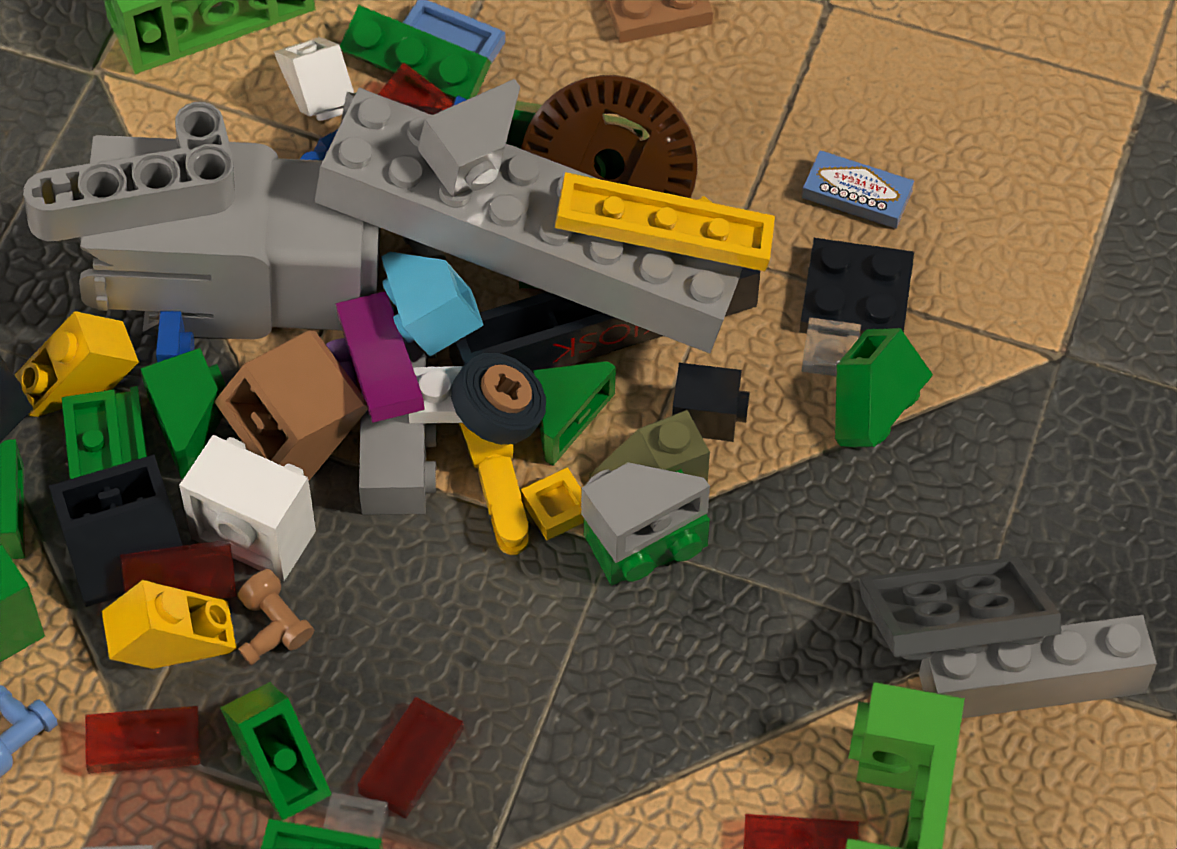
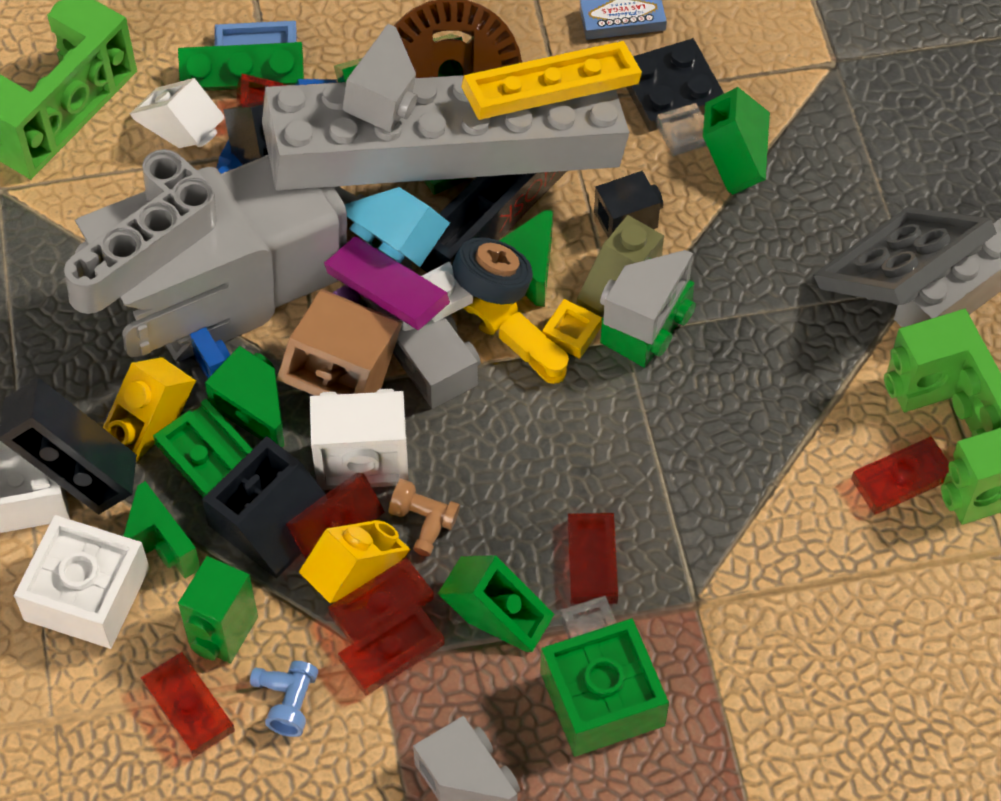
camera: 30 degrees left, 0 degrees up
(166, 684) = (380, 600): none -> clear red plate

